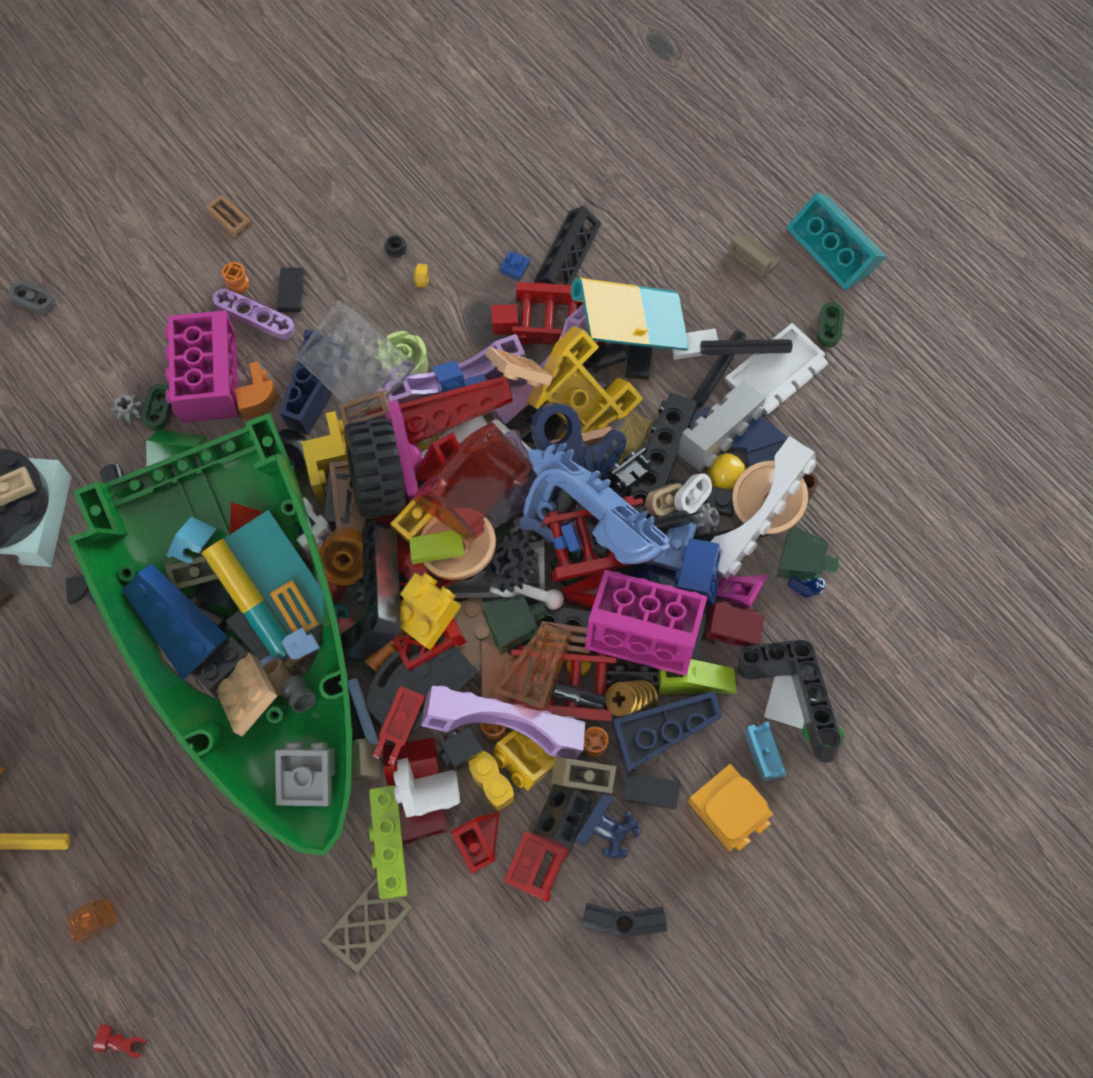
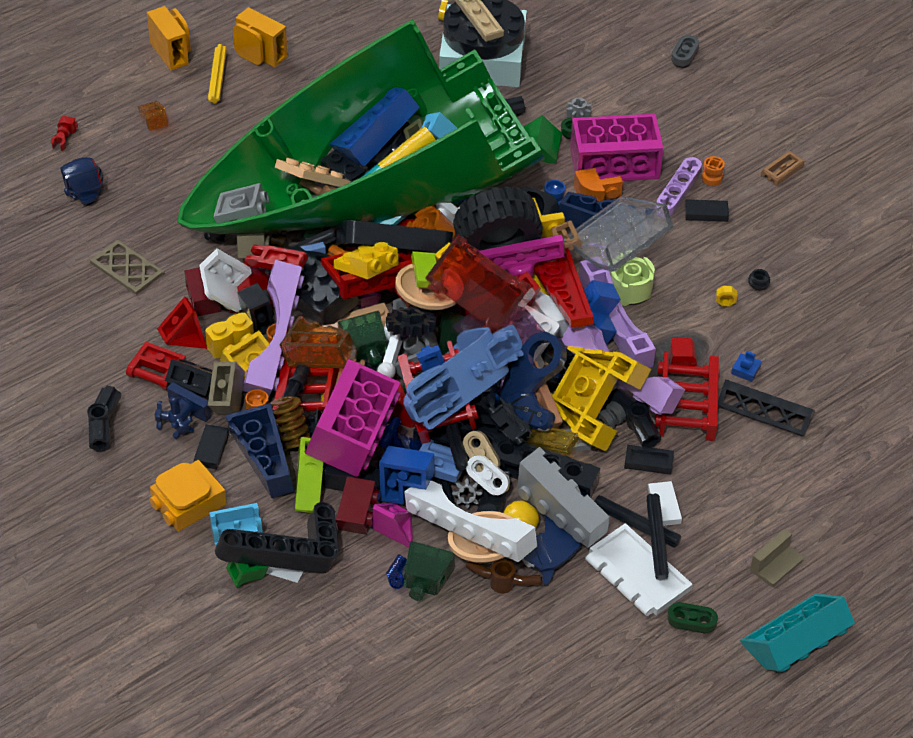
camera: 90 degrees right, 20 degrees down
(220, 999) = (82, 179): none -> dark blue piece
(388, 844) = (172, 267): lime bracket -> none
(517, 366) = (607, 329): light nougat plate -> none
(631, 314) = (679, 431): door -> none

